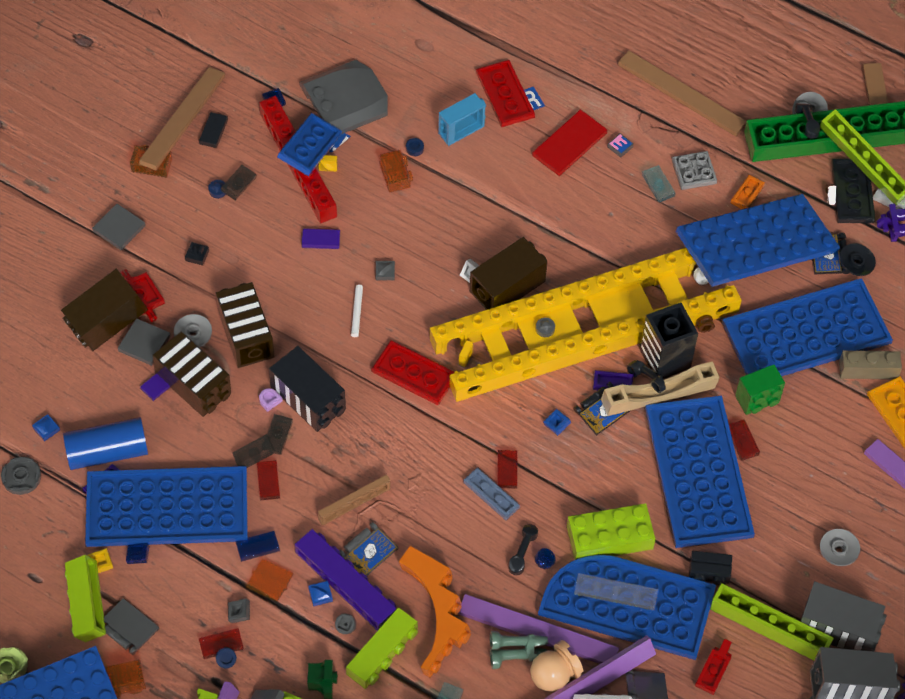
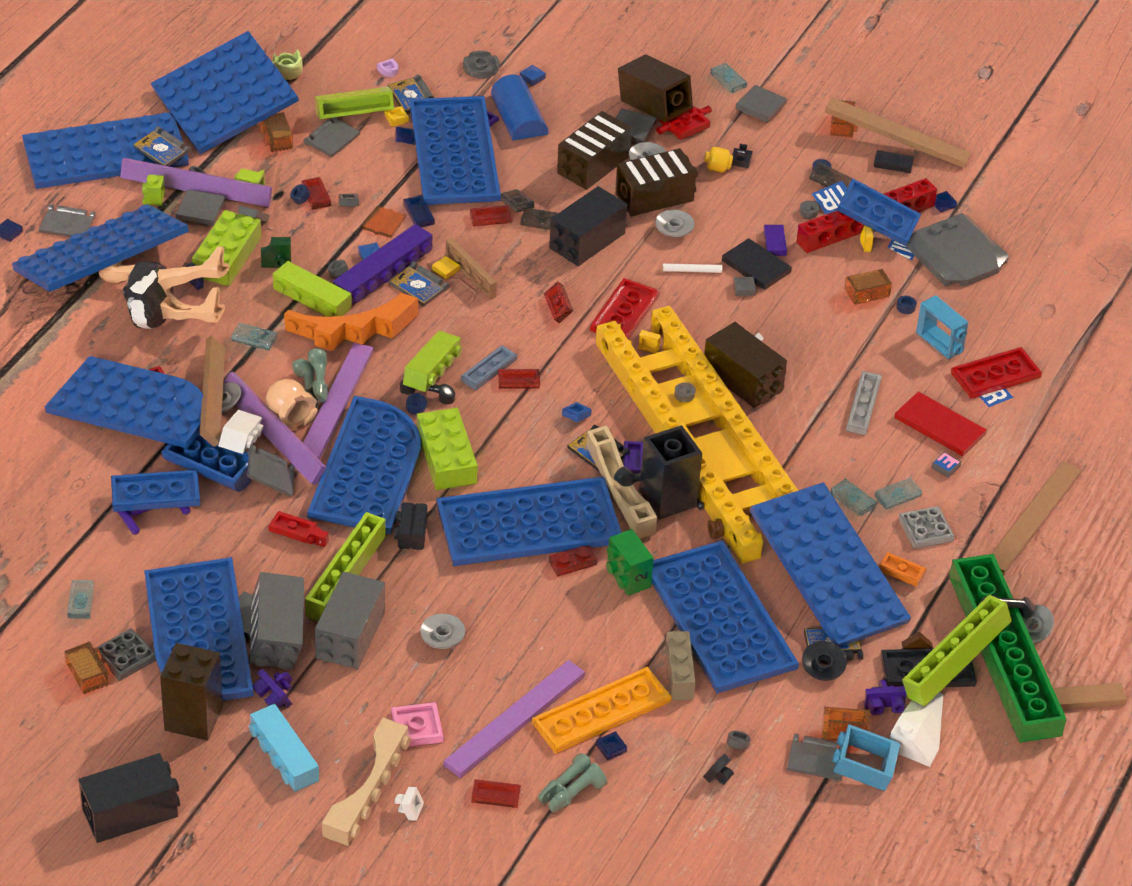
camera: 85 degrees right, 15 degrees down
(16, 566) = (388, 68): none -> lavender tile
(63, 545) = (410, 89): none -> piece
(70, 251) = (728, 77): none -> clear light blue plate
(204, 271) = (718, 159): none -> yellow head
(265, 183) = (830, 197): none -> blue sticker
(278, 206) = (809, 209): none -> dark grey tile
(297, 310) = (674, 223): none -> light grey dish
(346, 524) = (445, 267): none -> yellow tile
(353, 257) = (756, 262): none -> black tile
(407, 426) = (558, 302): none -> clear red plate
(497, 537) = (432, 361): none -> lime brick
(542, 195) = (863, 403): none -> light grey tile
(616, 591) = (377, 449): clear tile -> none
(660, 218) = (853, 497): none -> clear light blue plate

